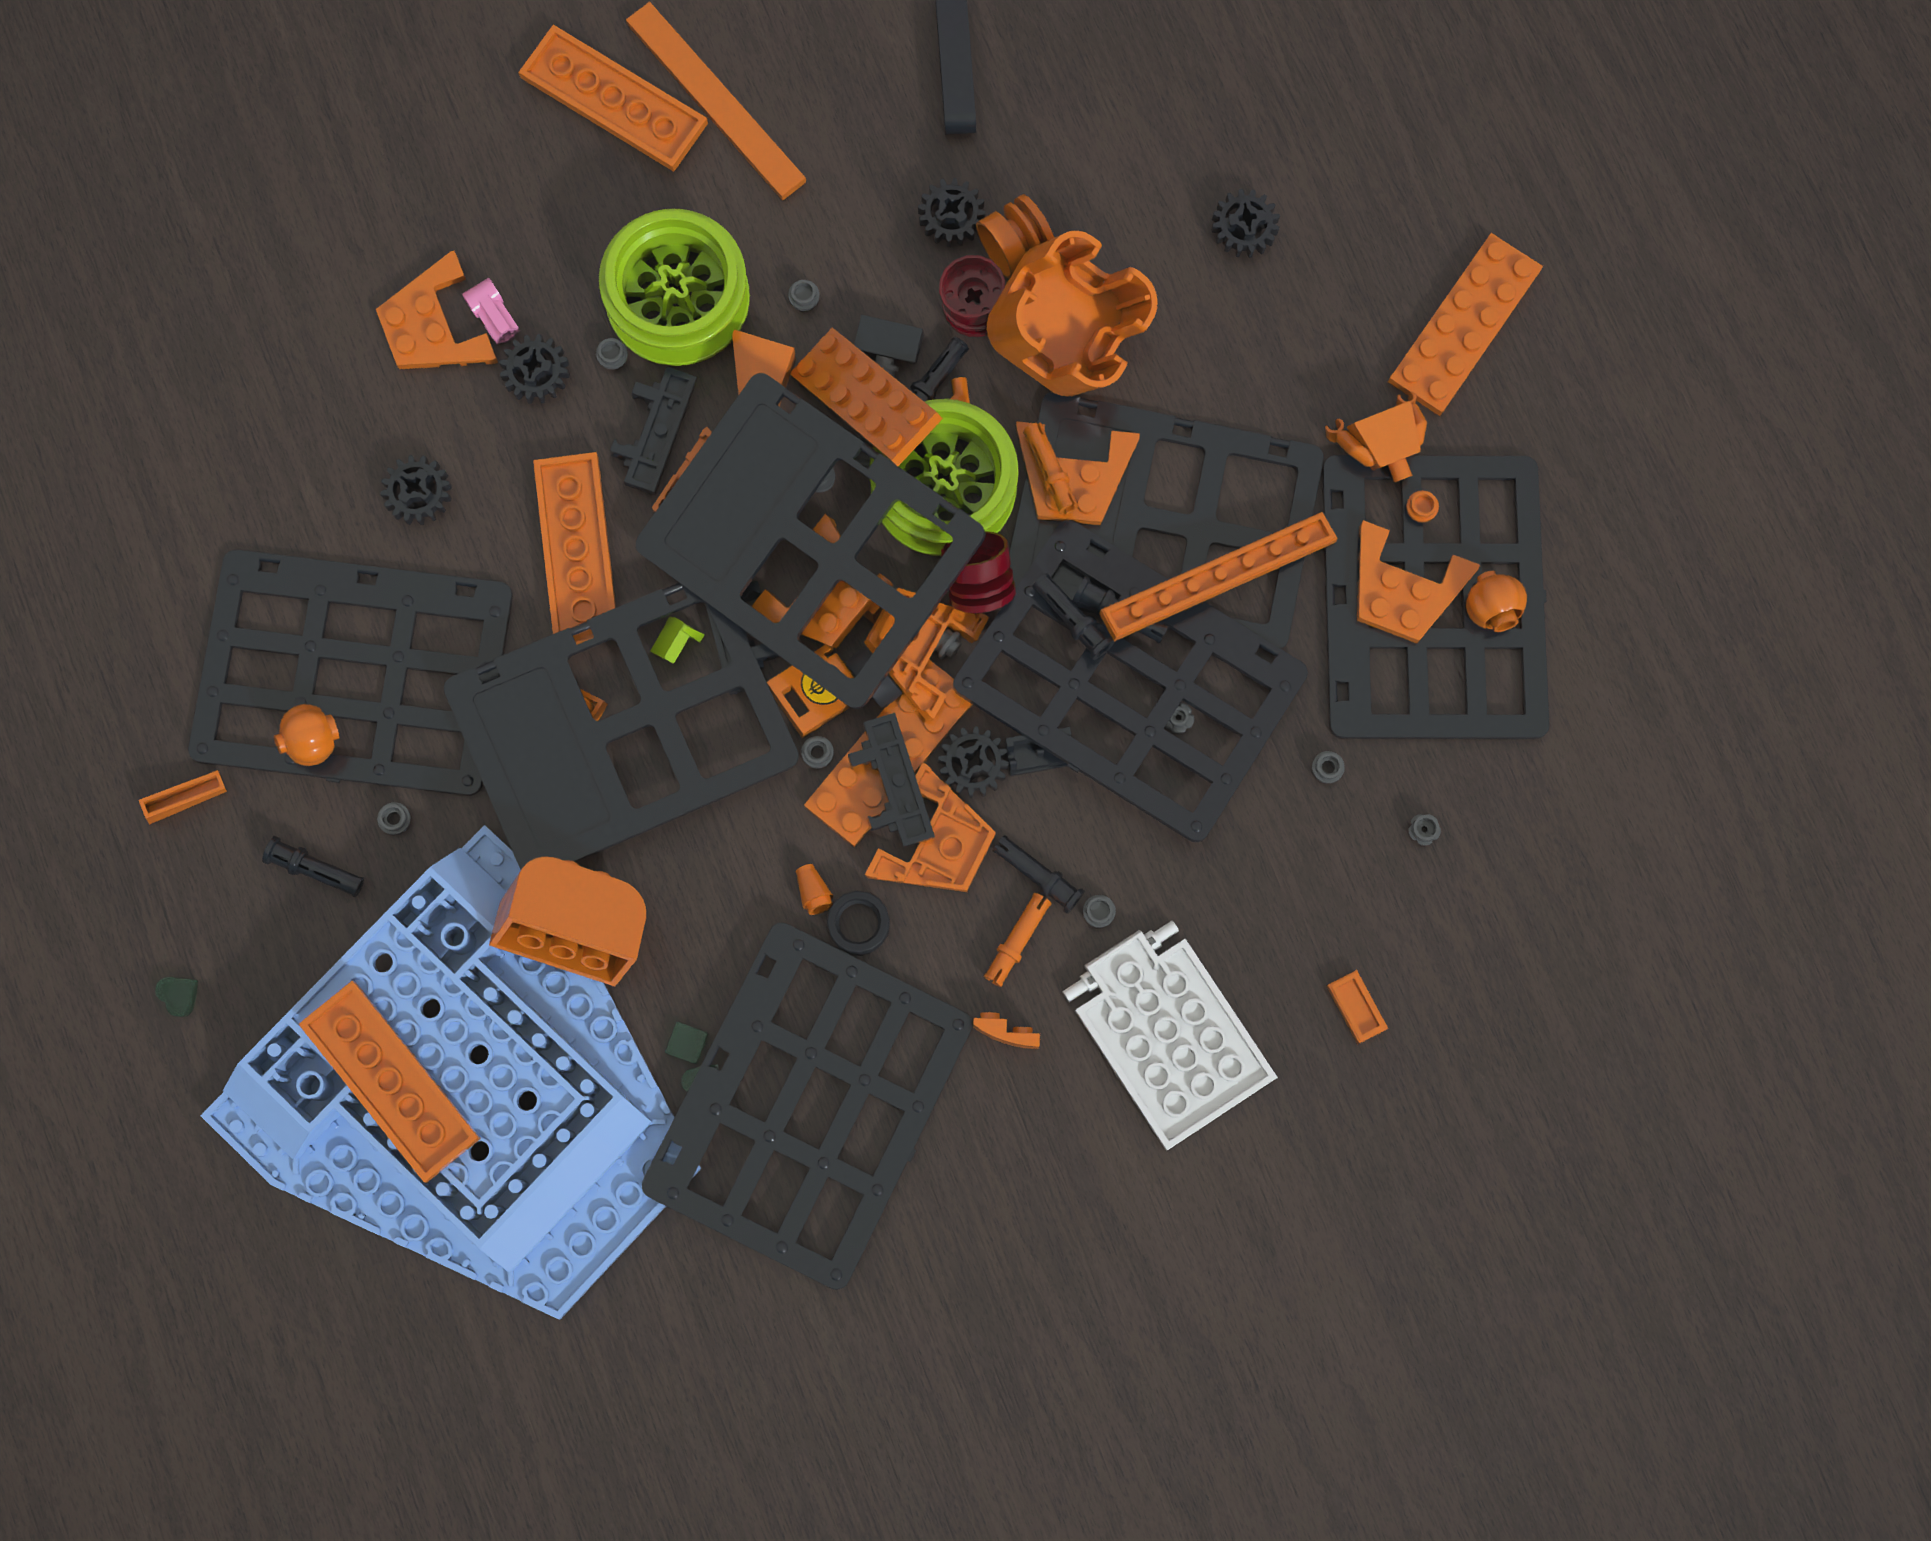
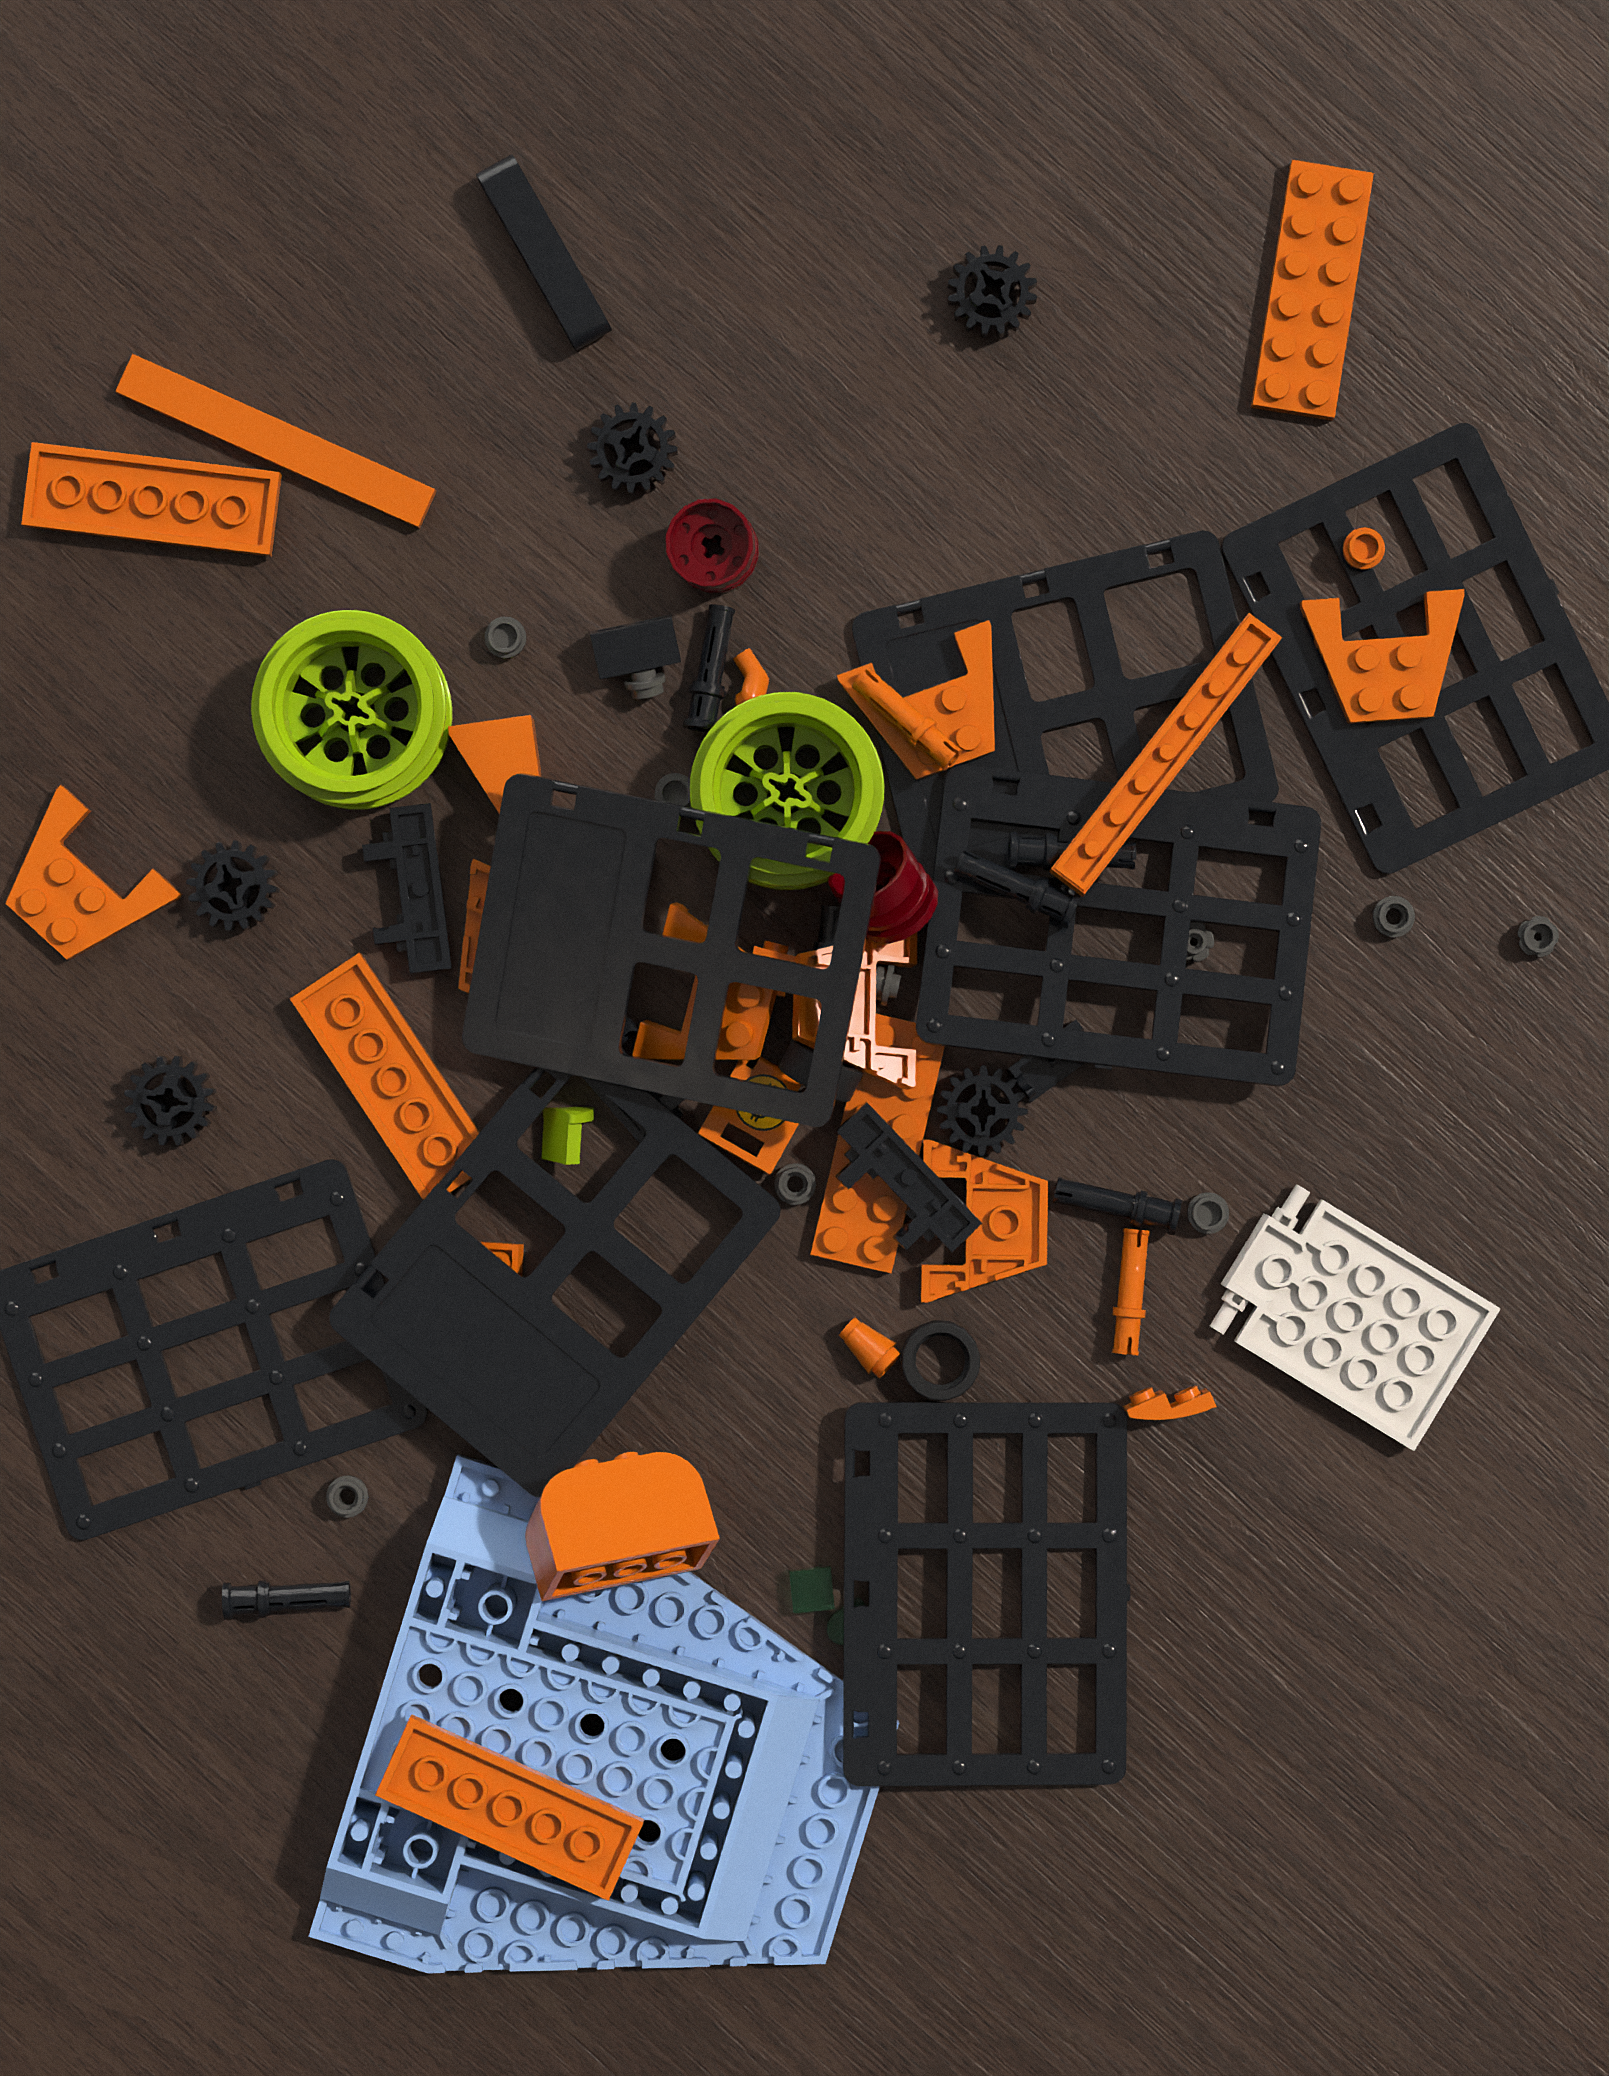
camera: 25 degrees left, 10 degrees up
(178, 995) = (207, 1812): clear green tile -> none
(182, 797) = (91, 1588): orange piece -> none
(306, 735) = (201, 1455): orange plant -> none
(488, 306) = (136, 834): bright pink piece -> none
(611, 353) = (313, 821): dark grey plate -> none
(866, 396) = (650, 742): orange plate -> none
(1012, 237) = (727, 447): orange wheel -> none
(1067, 316) = (839, 524): orange piece -> none
(1357, 1007) = (1552, 1181): orange tile -> none
(1384, 437) = (1283, 485): orange torso -> none
(1496, 601) = (1503, 626): orange plant -> none

